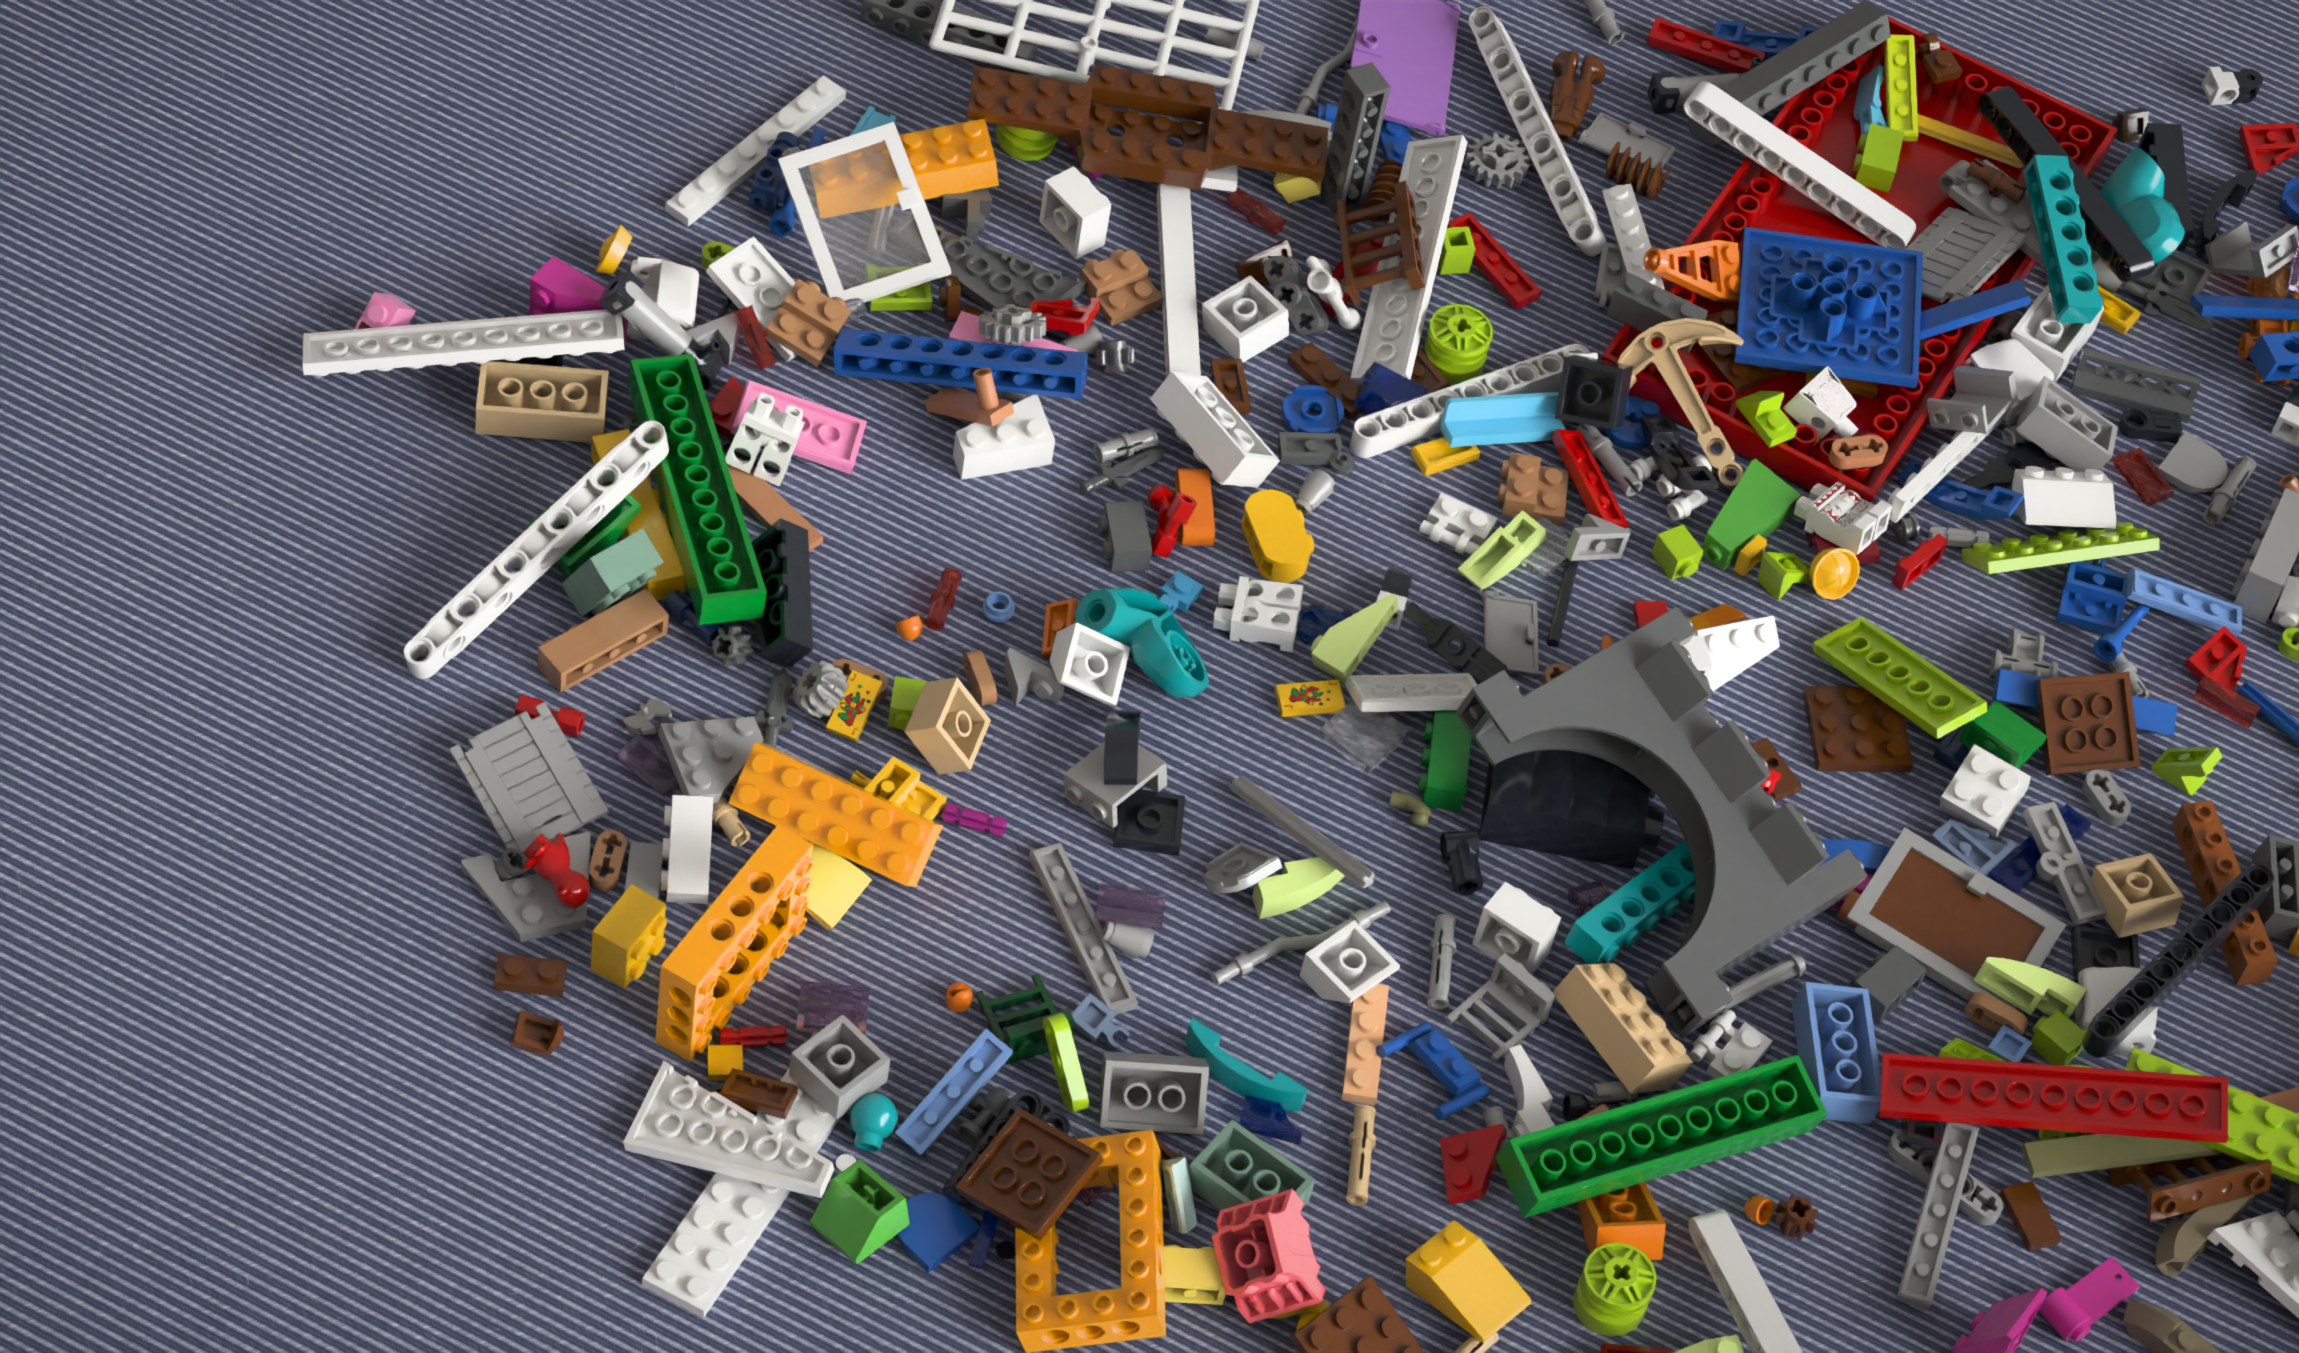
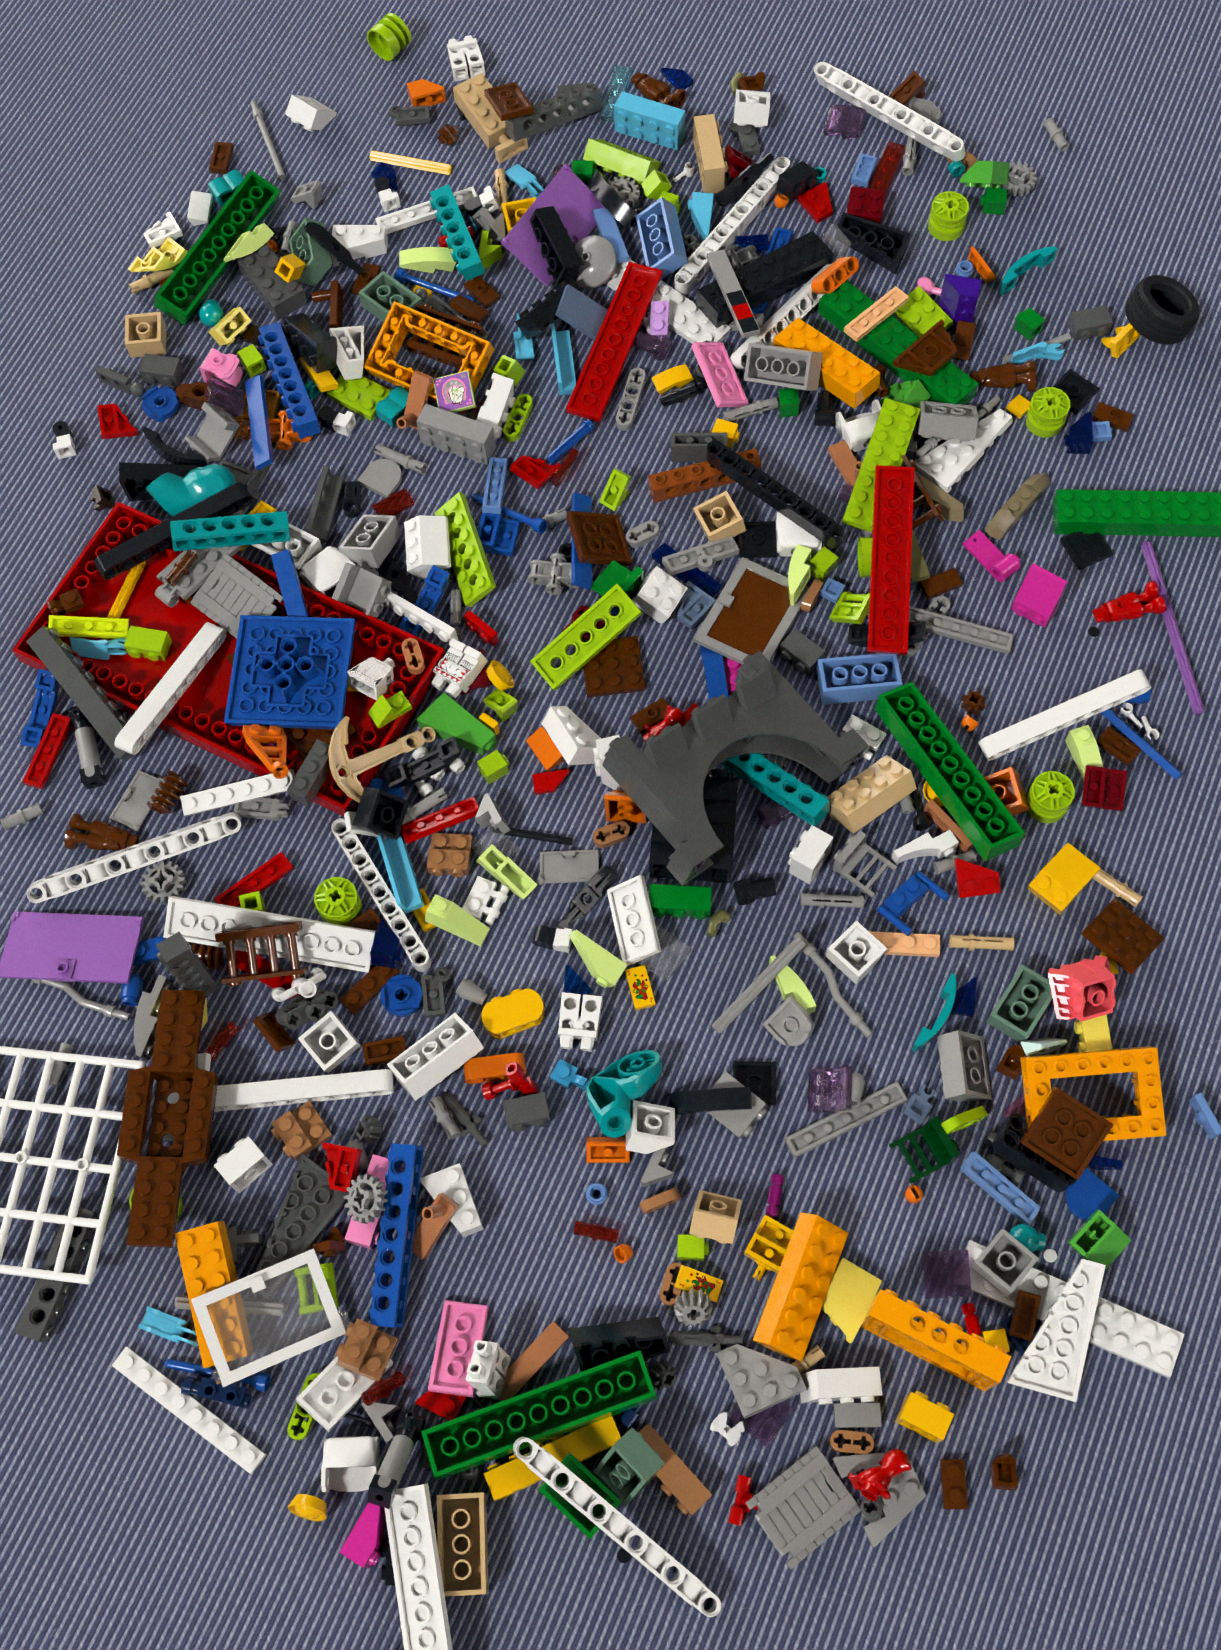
camera: 80 degrees left, 15 degrees up
(1424, 479) = (455, 920): none -> yellowish green slope

